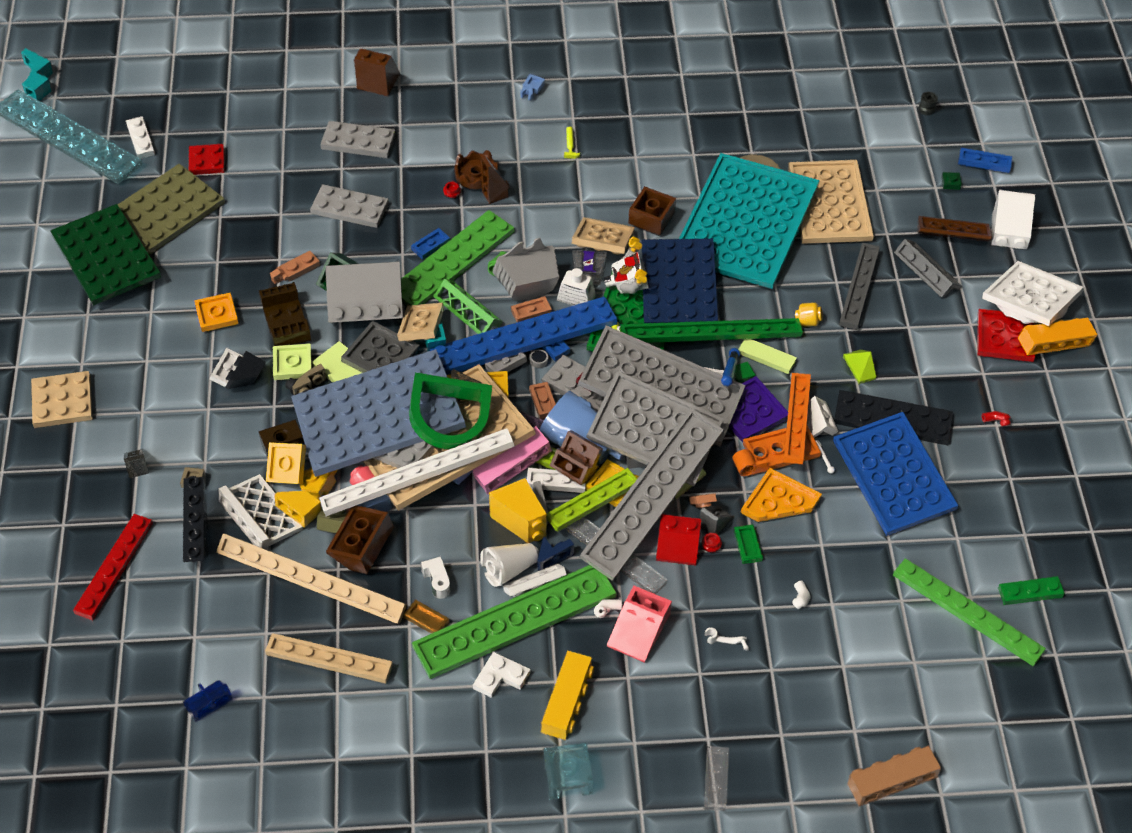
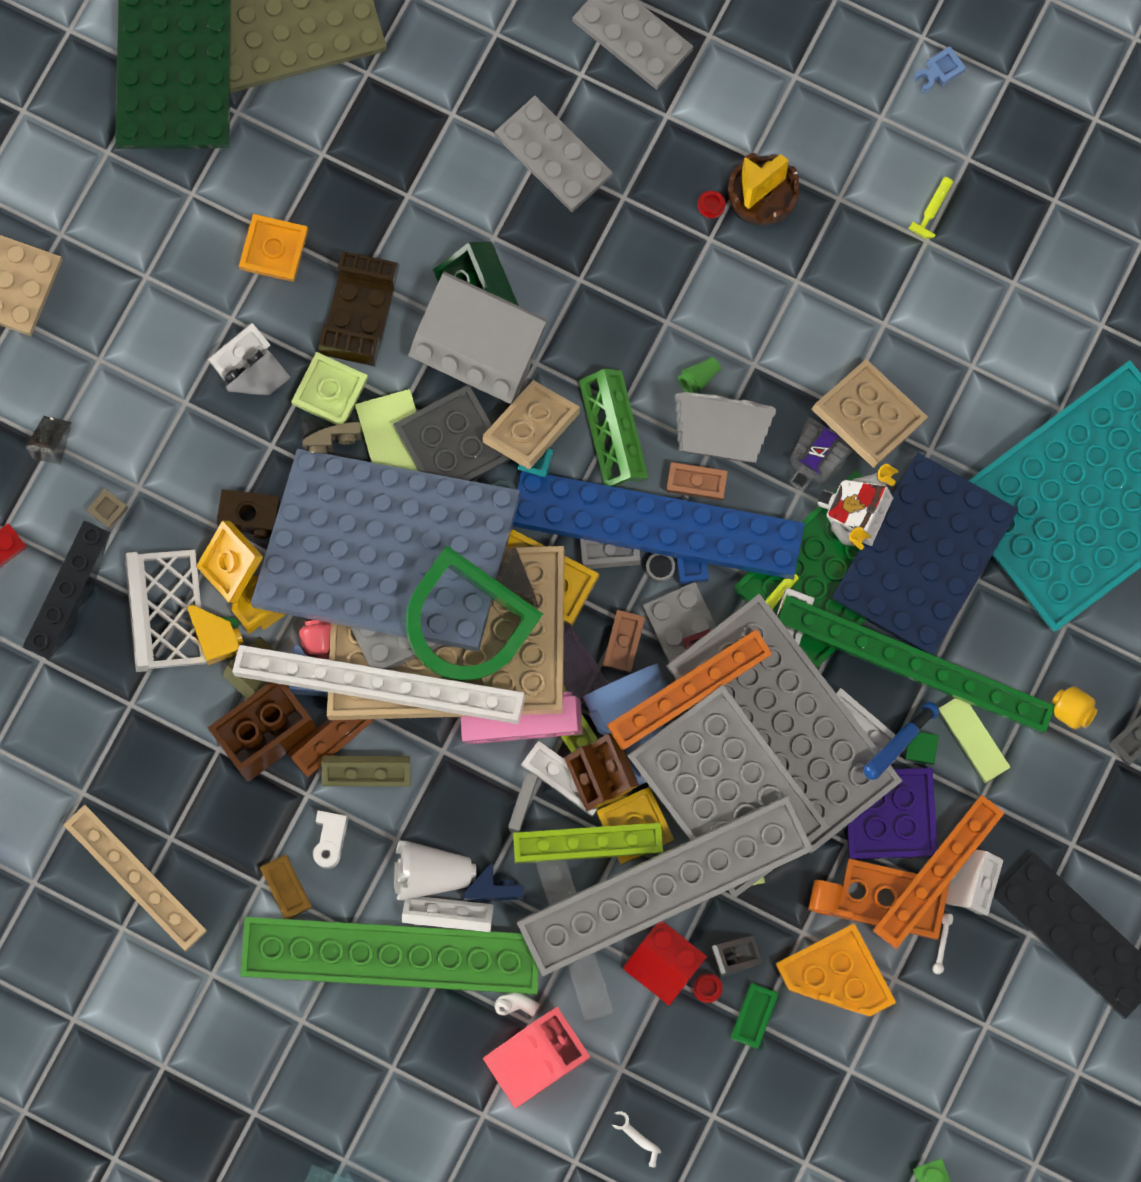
camera: 30 degrees right, 25 degrees up
(295, 268) = (420, 225): nougat hinge -> none
(311, 578) = (174, 750): tan plate -> none
(403, 527) = (325, 741): none -> dark orange plate
(430, 243) = (625, 287): blue plate -> none
(436, 532) = (366, 771): none -> olive plate
(454, 258) = (644, 329): bright green plate -> none
(471, 162) = (760, 181): none -> yellow slope
(493, 184) = (772, 233): reddish brown slope -> none
(498, 670) = (330, 1013): white plate -> none
(518, 510) = (485, 806): yellow slope -> none
(566, 695) = (389, 1101): yellow brick -> none
(576, 288) = (776, 487): white torso -> none
(599, 385) = (689, 689): none -> orange plate
(652, 210) = (967, 406): reddish brown brick -> none
(703, 500) = (731, 924): nougat plate -> none
(803, 595) = (774, 1134): white arm -> none
(861, 365) = (1091, 827): lime slope -> none
(895, 473) = (1014, 1029): blue plate -> none

